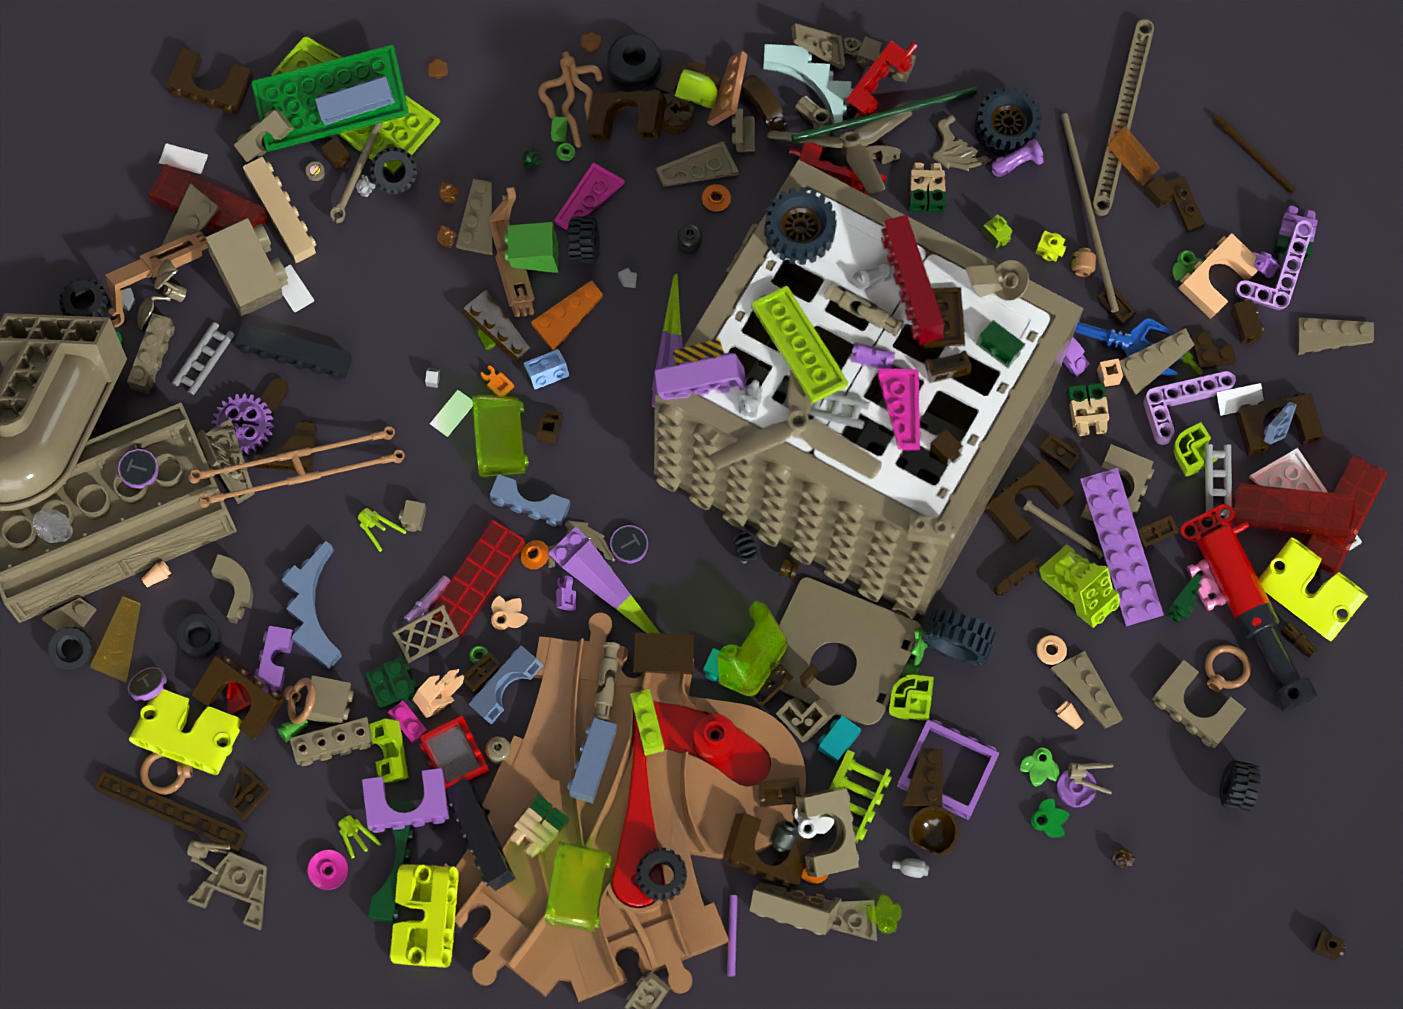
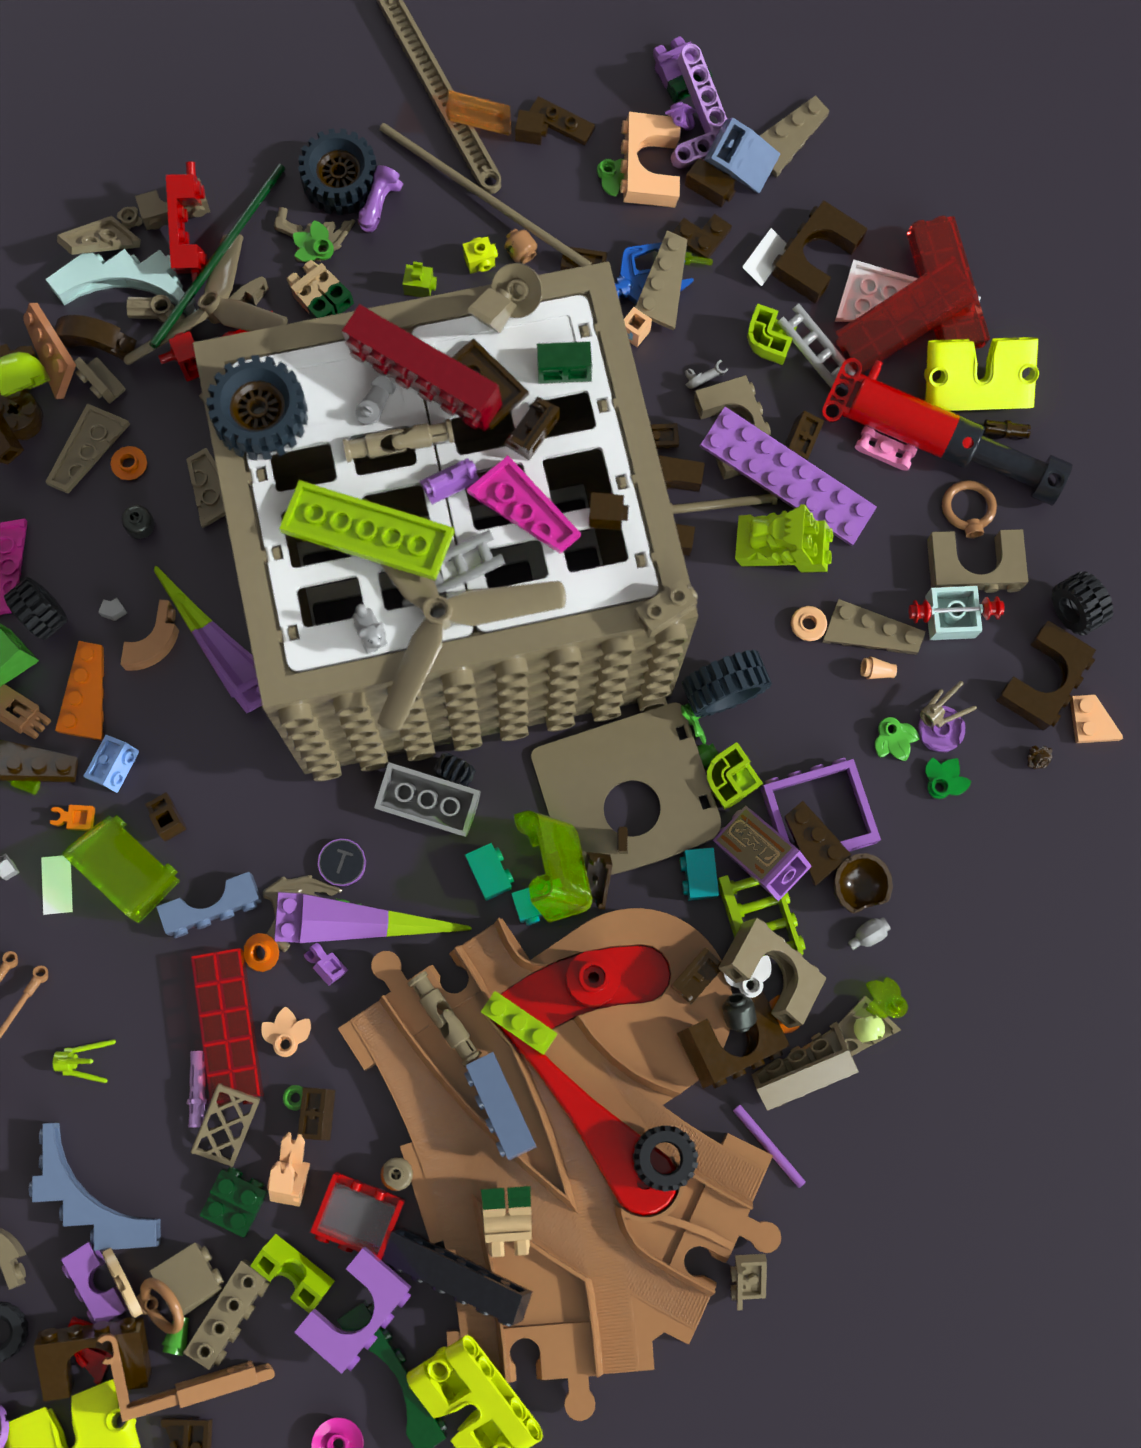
camera: 45 degrees left, 5 degrees up
(270, 759) = (186, 1392): none -> medium nougat hinge
(291, 668) = (122, 1283): none -> tan tile
(350, 827) = (320, 1384): lime plant -> none
(408, 721) = (284, 1224): dark pink plate -> none
(412, 515) = (108, 1020): dark tan brick -> none
(519, 666) = (345, 1136): sand blue arch -> none
(576, 887) = (597, 1244): clear neon green windscreen -> none
(635, 321) = (155, 646): none -> medium nougat arch
(663, 653) = (473, 941): dark brown tile -> none
(697, 352) = (272, 628): sticker -> none
(700, 377) = (295, 650): medium lavender wedge -> none
(711, 625) = (489, 871): none -> teal brick
(713, 550) = (427, 799): none -> light grey brick
(789, 568) = (512, 754): dark brown wheel -> none
(805, 721) = (654, 887): dark tan brick -> none
(856, 918) = (869, 1028): none -> yellowish green piece
(887, 757) = (762, 852): none -> slope
(951, 152) = (311, 242): none -> bright green plate
(1017, 577) = (720, 582): dark brown hinge -> none
(1088, 408) = (653, 374): tan hips -> none
(1118, 438) = (697, 380): none -> light grey piece
(1150, 721) = (955, 612): none -> light aqua brick
(1155, 830) = (1072, 658): none -> dark brown arch
(1181, 397) = (713, 296): lavender beam -> none
(1181, 868) = (1092, 721): none -> light nougat wing
(1185, 601) = (884, 476): dark green plate -> none
(1230, 130) = (539, 23): dark brown bar -> none
(1279, 426) = (823, 253): sand blue wing -> none
(1282, 322) = (742, 154): none -> sand blue slope

